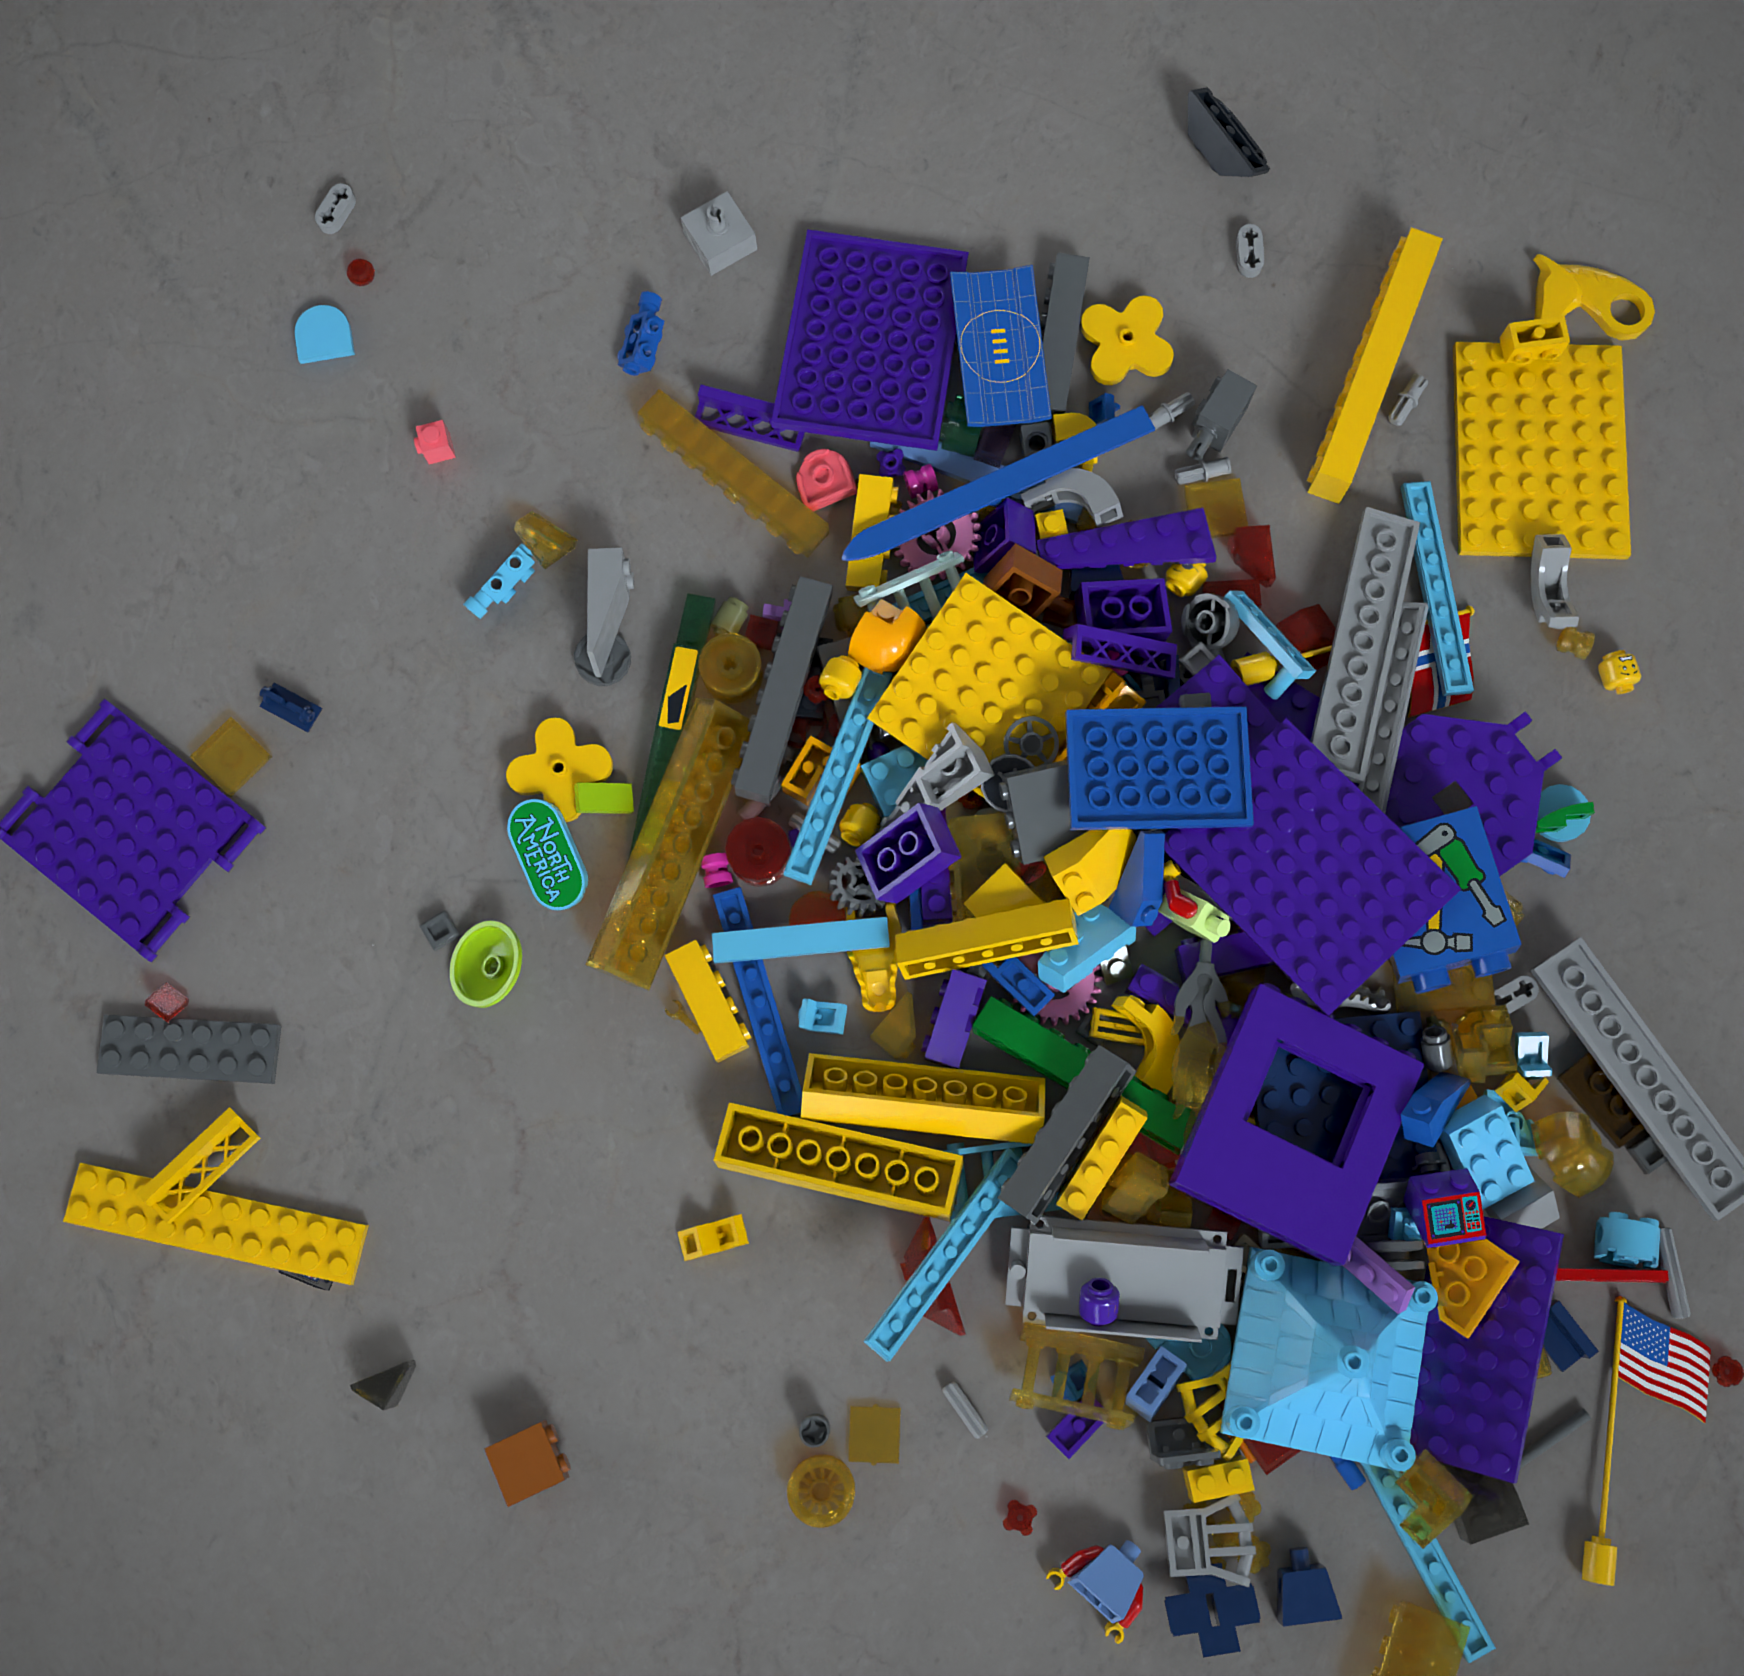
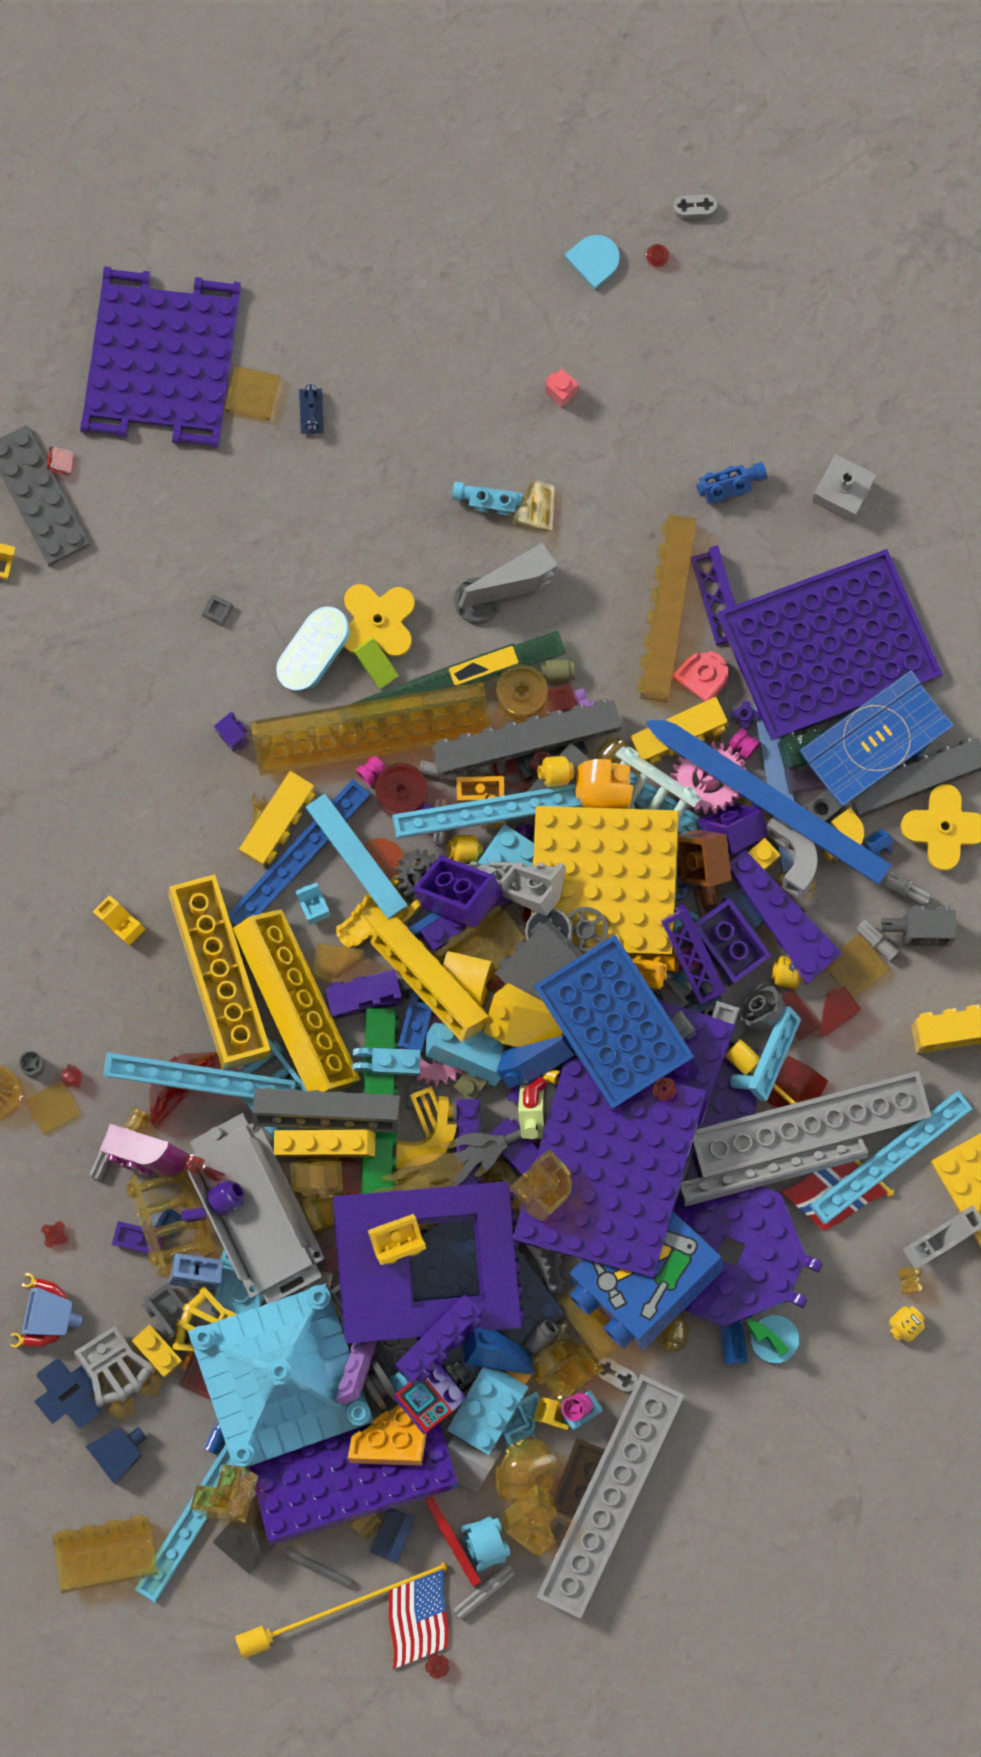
camera: 55 degrees right, 0 degrees up
(485, 964) = (212, 654): lime dish -> none
(583, 993) = (232, 732): none -> dark purple brick
(855, 1393) = (71, 1076): none -> clear red plate
(947, 1351) = (136, 1120): none -> clear yellow bush
(991, 1366) = (142, 1152): none -> brick
(1045, 1314) = (196, 1164): none -> clear red plate
(1047, 1034) = (388, 1061): none -> medium azure hinge
(1095, 1349) = (193, 1215): none -> dark purple tile
(1266, 1141) = (396, 1240): none -> yellow bracket
(1269, 754) = (664, 1095): none -> clear red plate
(1300, 946) = (544, 1186): none -> clear yellow brick
(1402, 1161) = (439, 1341): none -> dark purple brick
(1535, 1062) = (572, 1409): none -> dark pink wheel
(1633, 1177) = (529, 1520): none -> clear yellow brick

